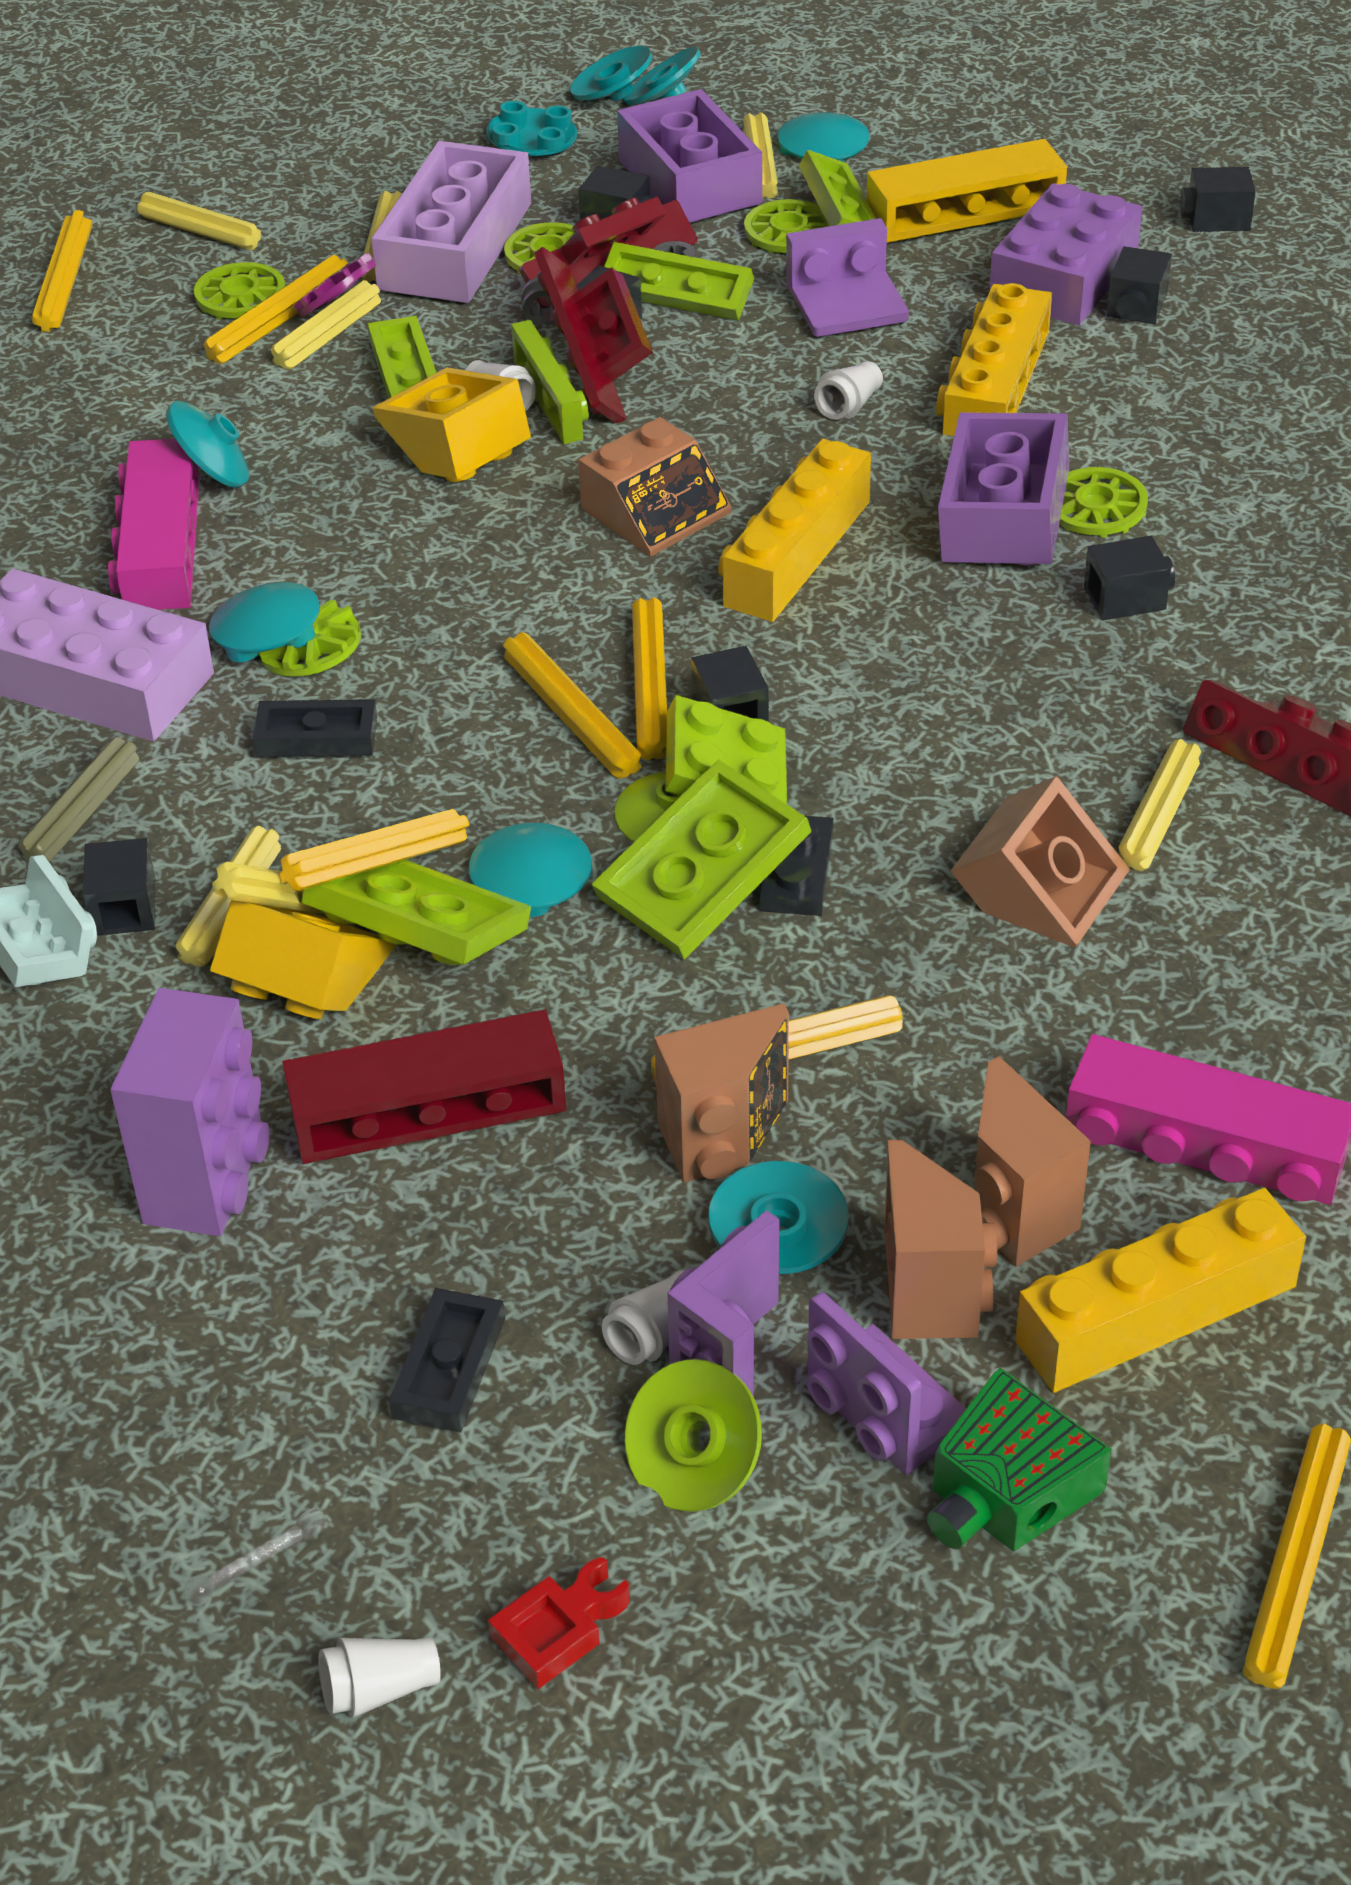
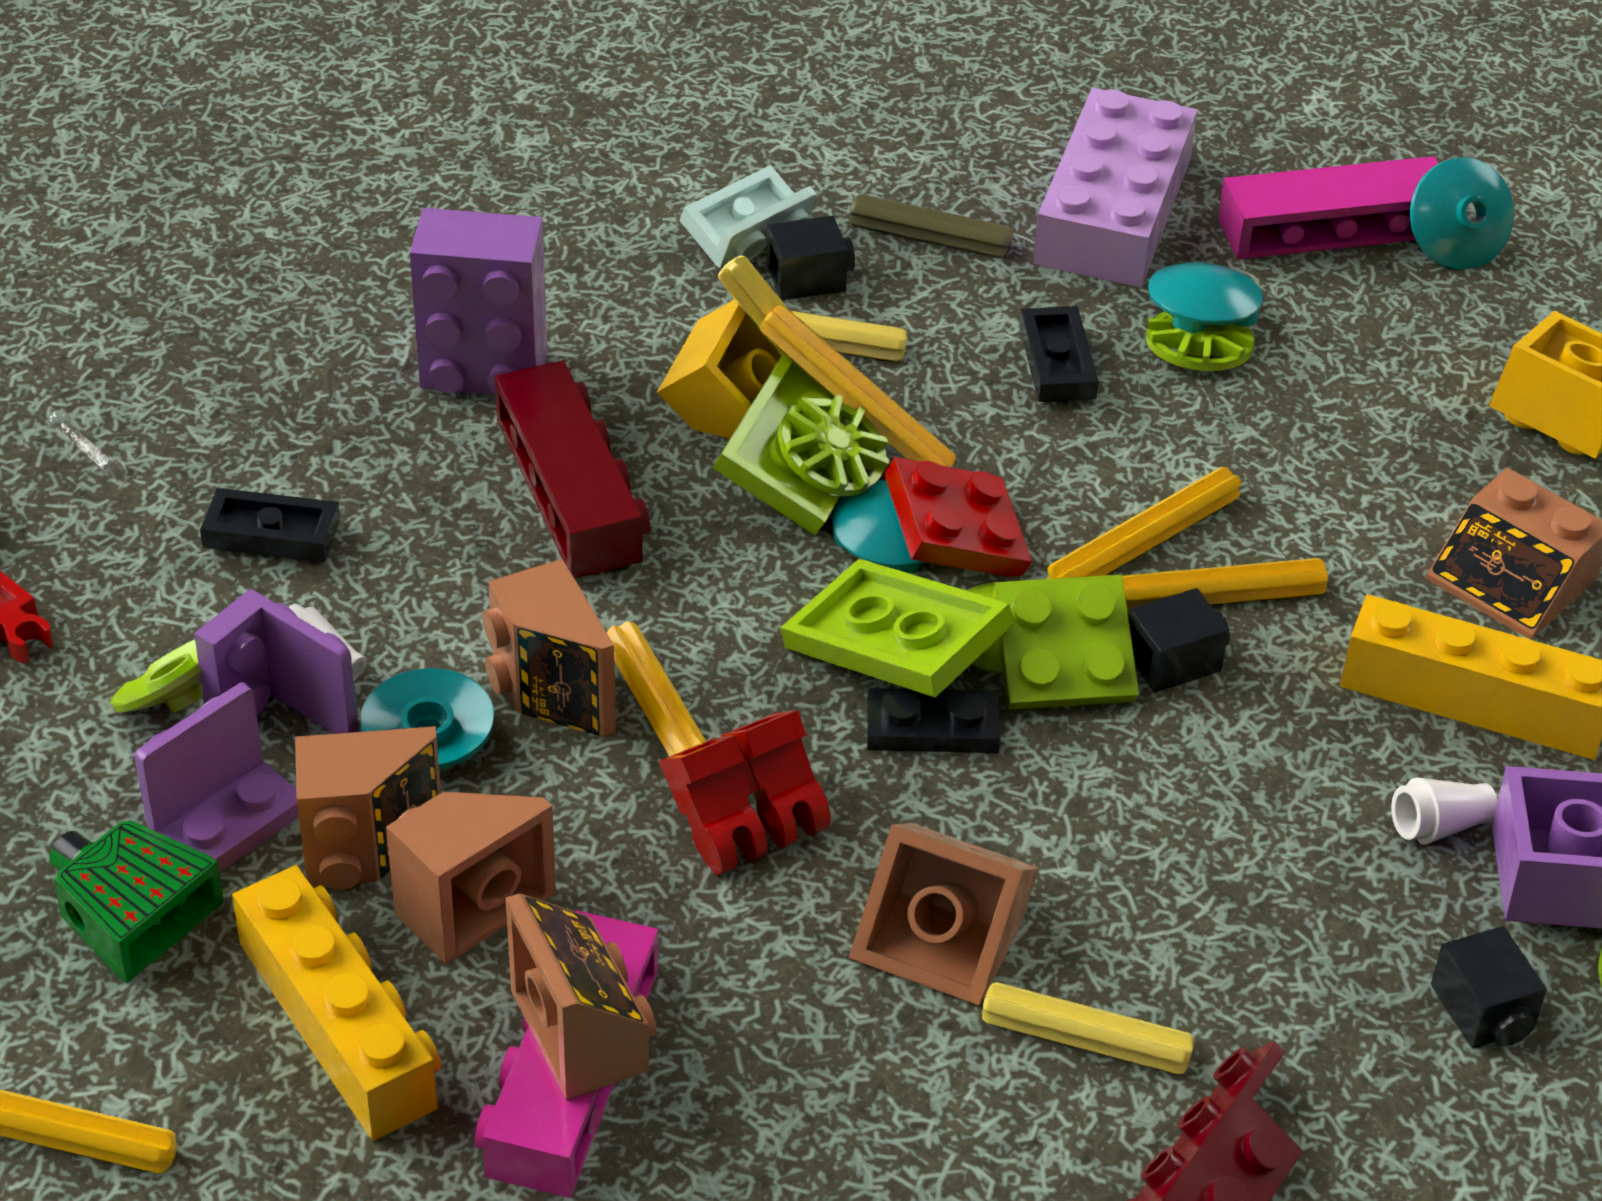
camera: 80 degrees right, 0 degrees up
(444, 876) = (833, 445): none -> lime wheel
(547, 810) = (957, 517): none -> red plate
(904, 971) = (718, 775): none -> red legs
(935, 579) = (1440, 808): none -> white cone
(1224, 1064) = (576, 997): none -> nougat slope

